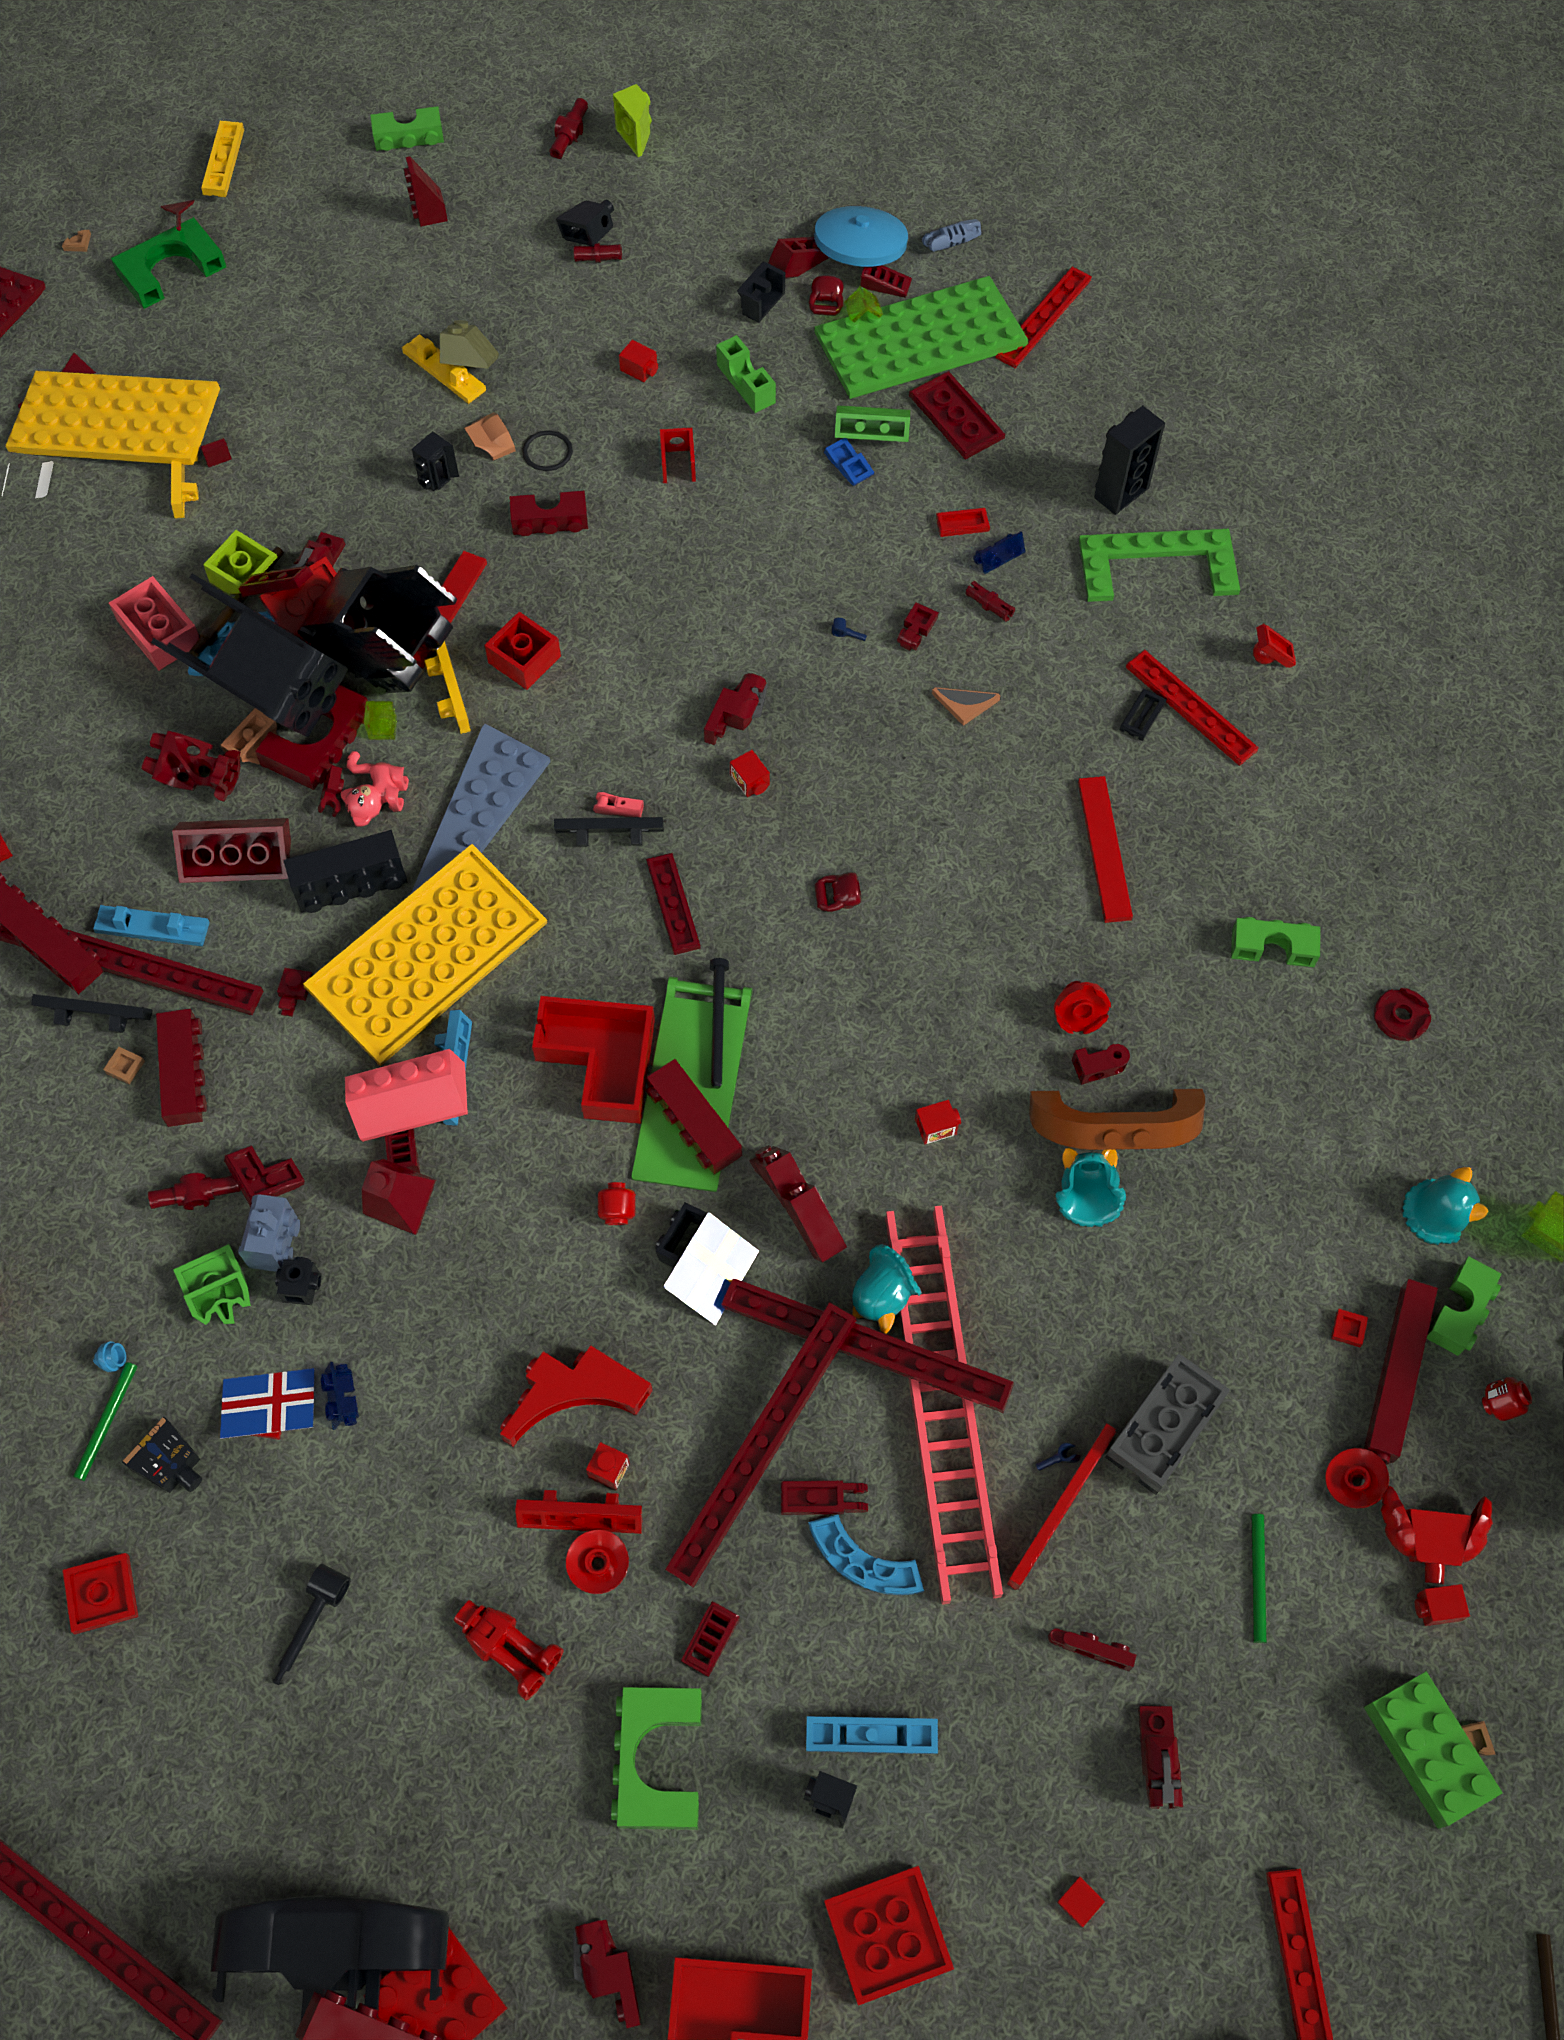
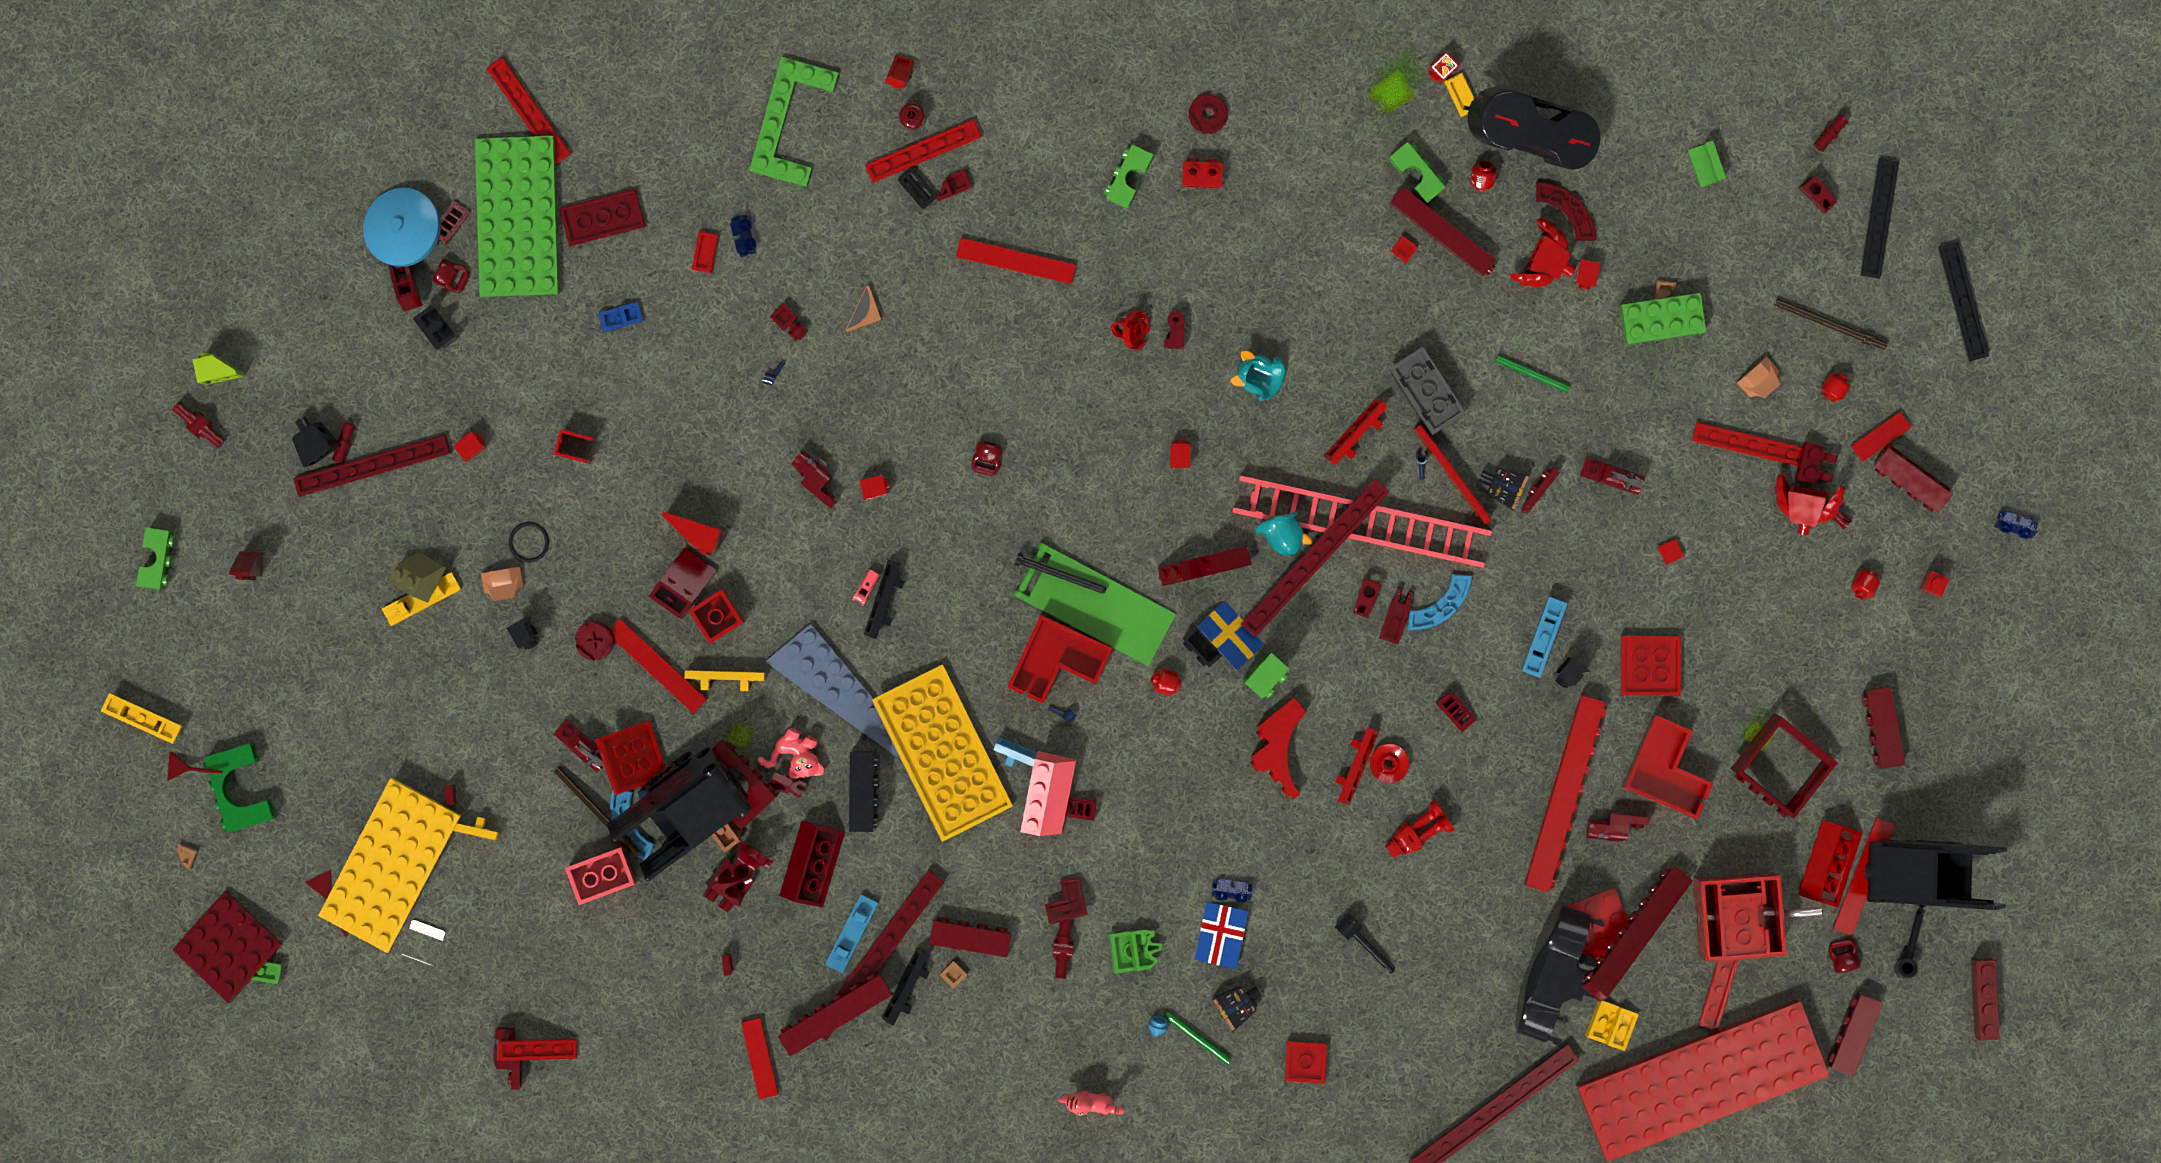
camera: 75 degrees left, 25 degrees up
(73, 792) = (727, 964): none -> dark red tile
(236, 562) = (571, 801): lime slope -> none
(269, 1233) = (1114, 907): sand blue hinge -> none
(275, 581) = (610, 780): dark red tile -> none
(292, 989) = (932, 848): dark red plate -> none
(298, 1281) = (1156, 900): black brick -> none
(387, 633) = (679, 719): black piece -> none
(396, 1195) = (1112, 818): dark red slope -> none
(450, 541) = (594, 640): none -> dark red tile
(526, 1096) = (1067, 716): none -> dark blue hand
(551, 604) = (682, 583): none -> dark red slope
(566, 516) = (601, 544): dark red arch -> none
(581, 285) = (372, 465): none -> dark red tile
(607, 1466) = (1334, 739): red brick -> none
(617, 598) = (697, 534): none -> red slope
(634, 1862) = (1564, 794): none -> red brick
(637, 1803) = (1533, 782): bright green arch -> none
(669, 1320) = (1266, 675): none -> bright green brick
(673, 903) = (956, 574): dark red tile -> none
(694, 1117) = (1124, 612): dark red brick -> none
(753, 385) = (514, 369): bright green arch -> none
(760, 1445) = (1354, 641): dark red plate -> none
(833, 1442) = (1366, 597): none -> dark red leg
(860, 302) = (478, 252): clear neon green panel -> none
(872, 423) = (596, 288): bright green brick -> none
(952, 235) = (422, 152): sand blue hinge -> none
(990, 601) = (784, 260): dark red pin -> none
(1077, 1592) = (1504, 486): none -> torso
(1093, 1356) = (1355, 431): none -> red hinge
(1118, 1129) = (1234, 342): dark orange arch -> none
(1128, 459) = (713, 116): black brick -> none
(1166, 752) = (954, 185): none -> dark red slope
(1228, 676) = (918, 119): none -> dark red head
(1322, 1028) = (1202, 174): none -> red brick
(1356, 1464) = (1494, 298): red dish -> none
(1413, 1952) = (1760, 379): none -> nougat slope
(1443, 1207) = (1350, 155): teal hair -> none
(1525, 1544) = (1570, 206): none -> dark red tile

